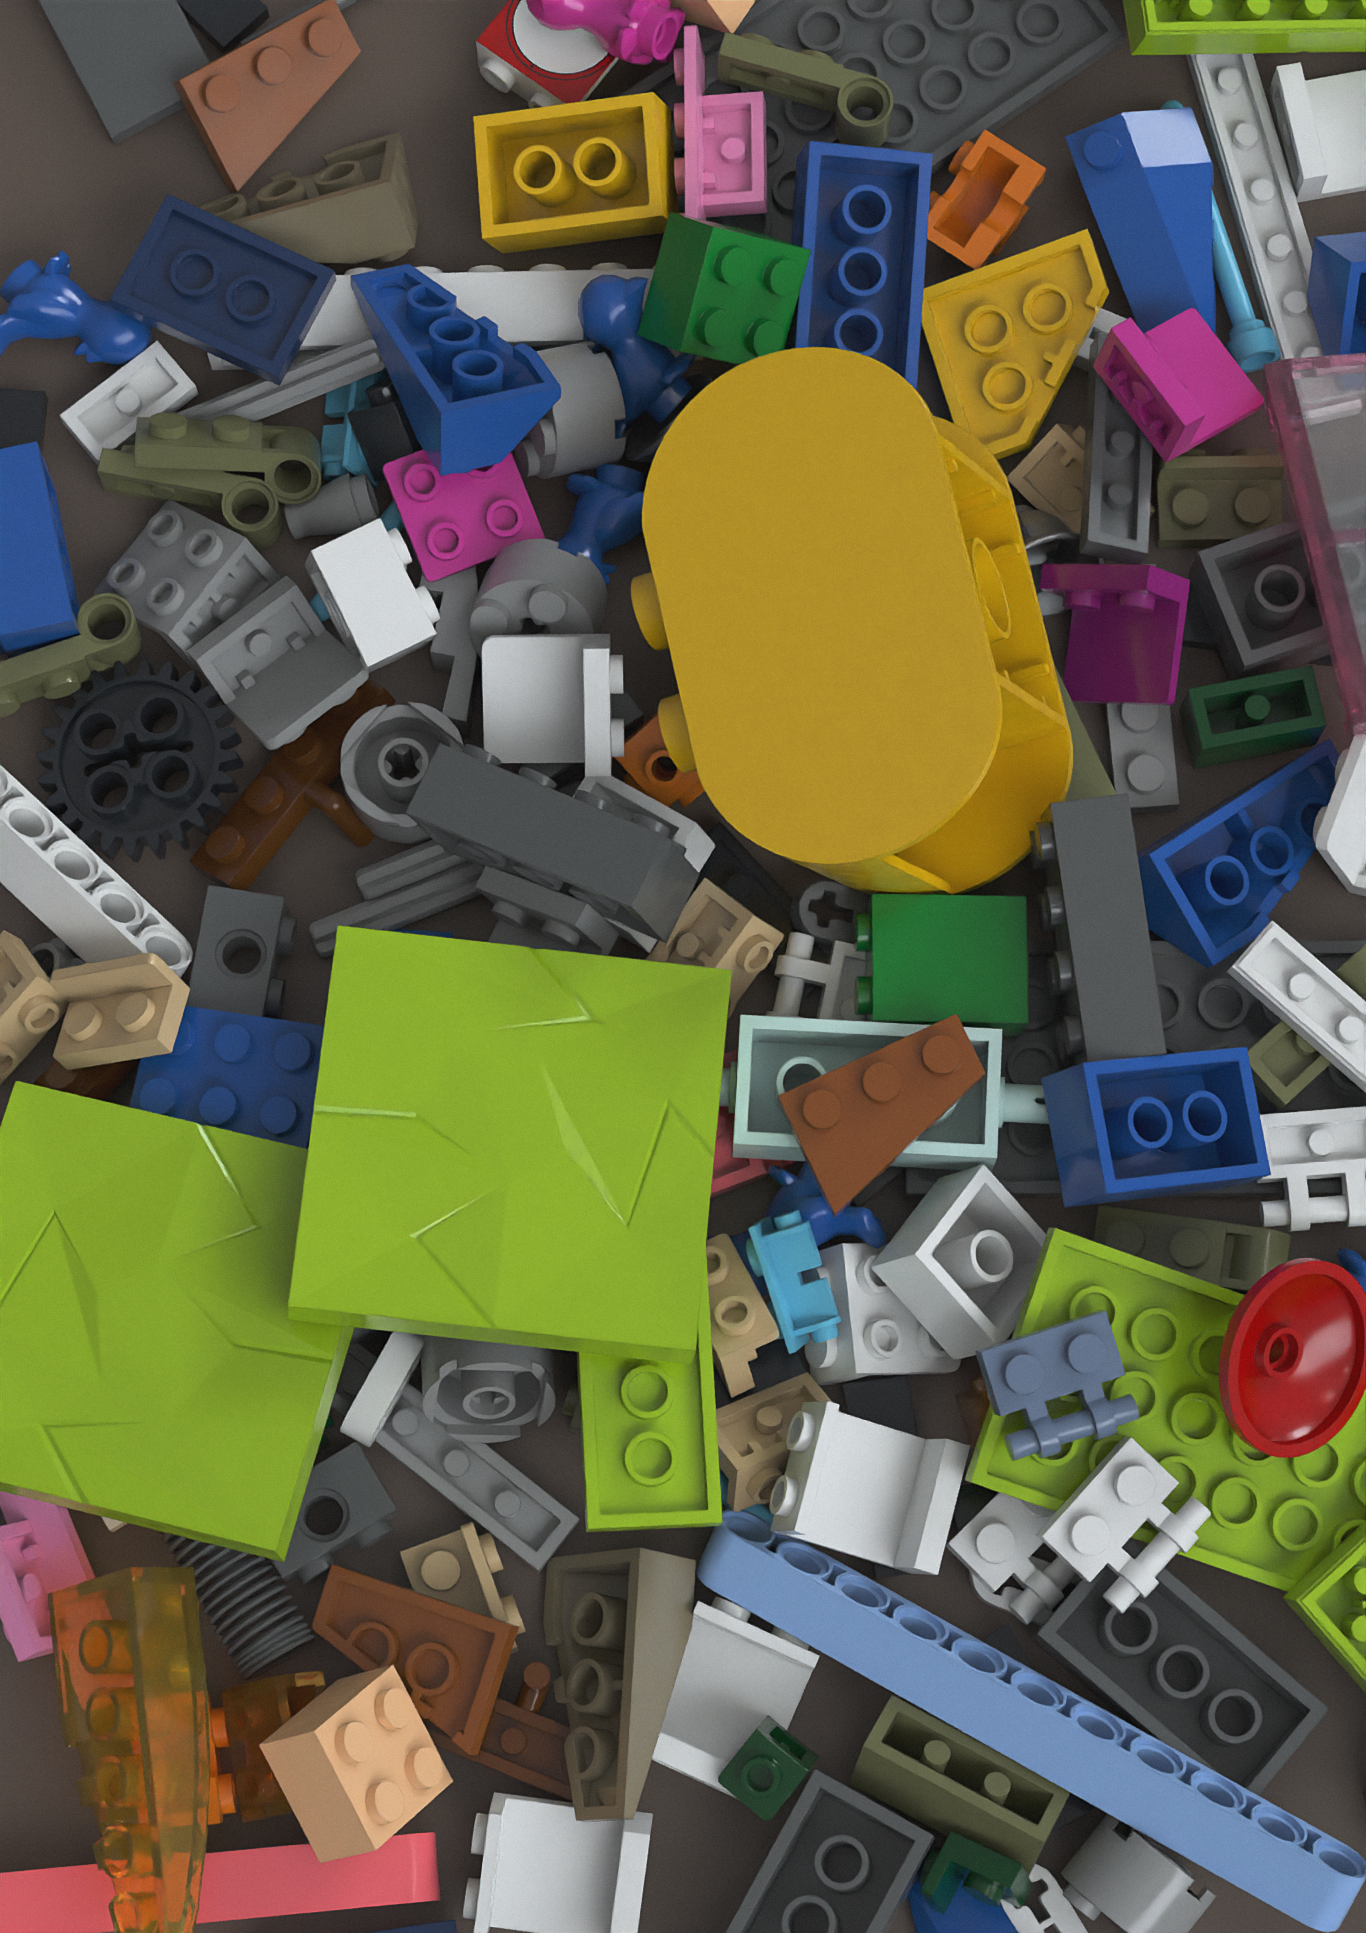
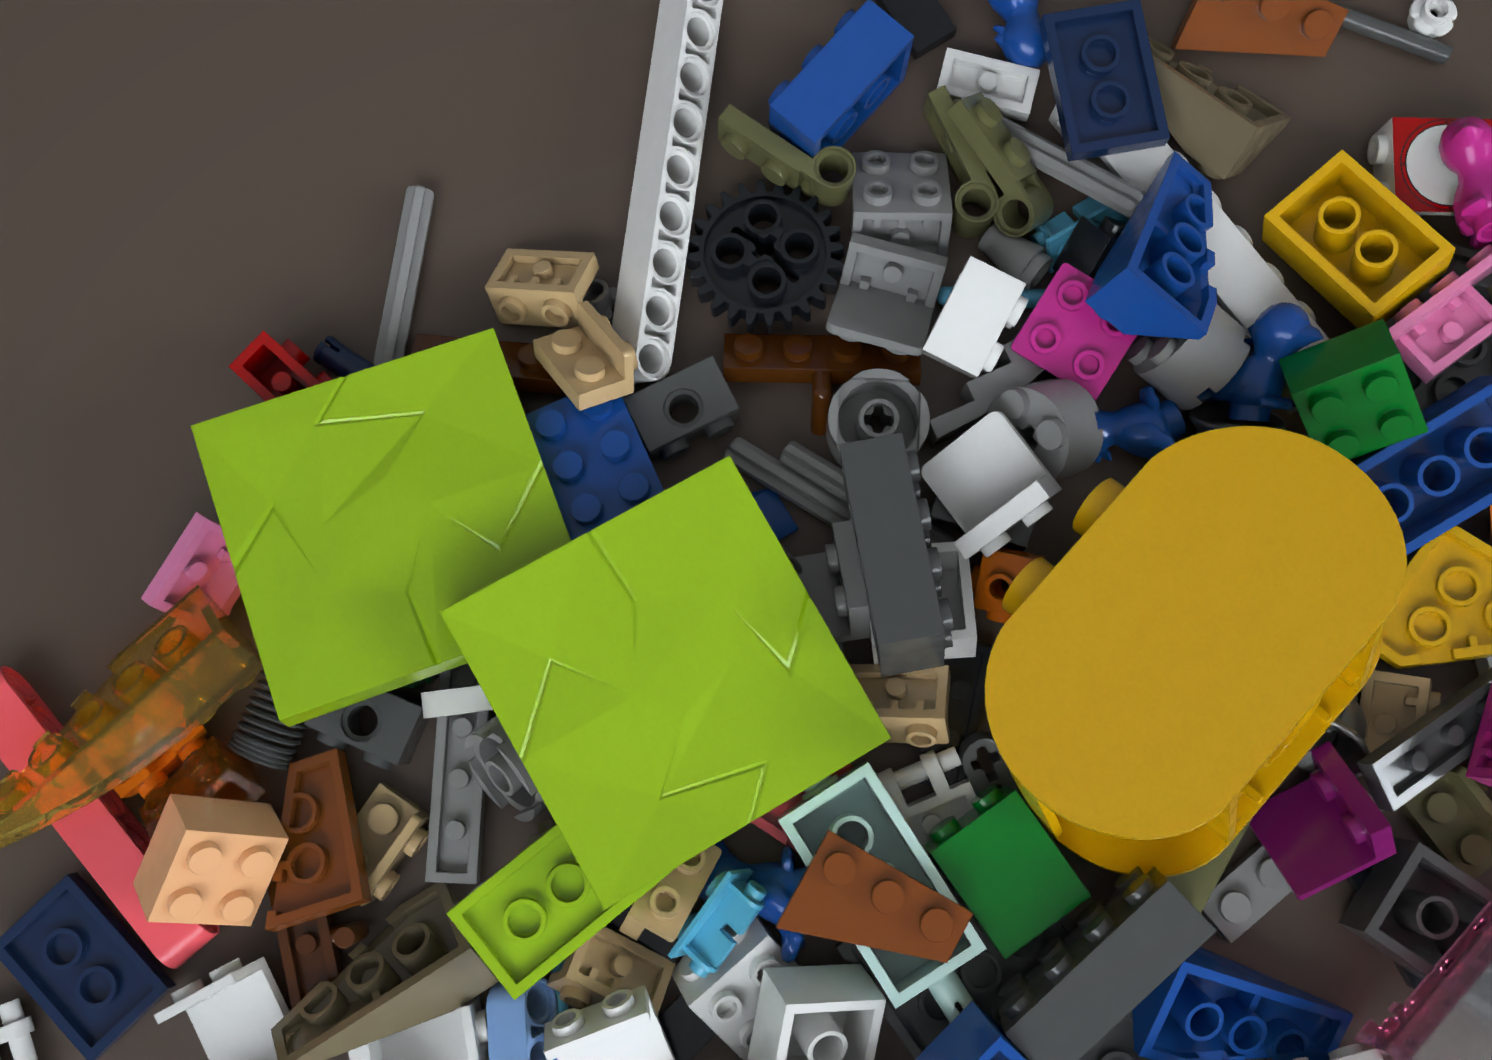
camera: 60 degrees right, 5 degrees up
(1252, 717) = (1331, 956): dark green brick -> none

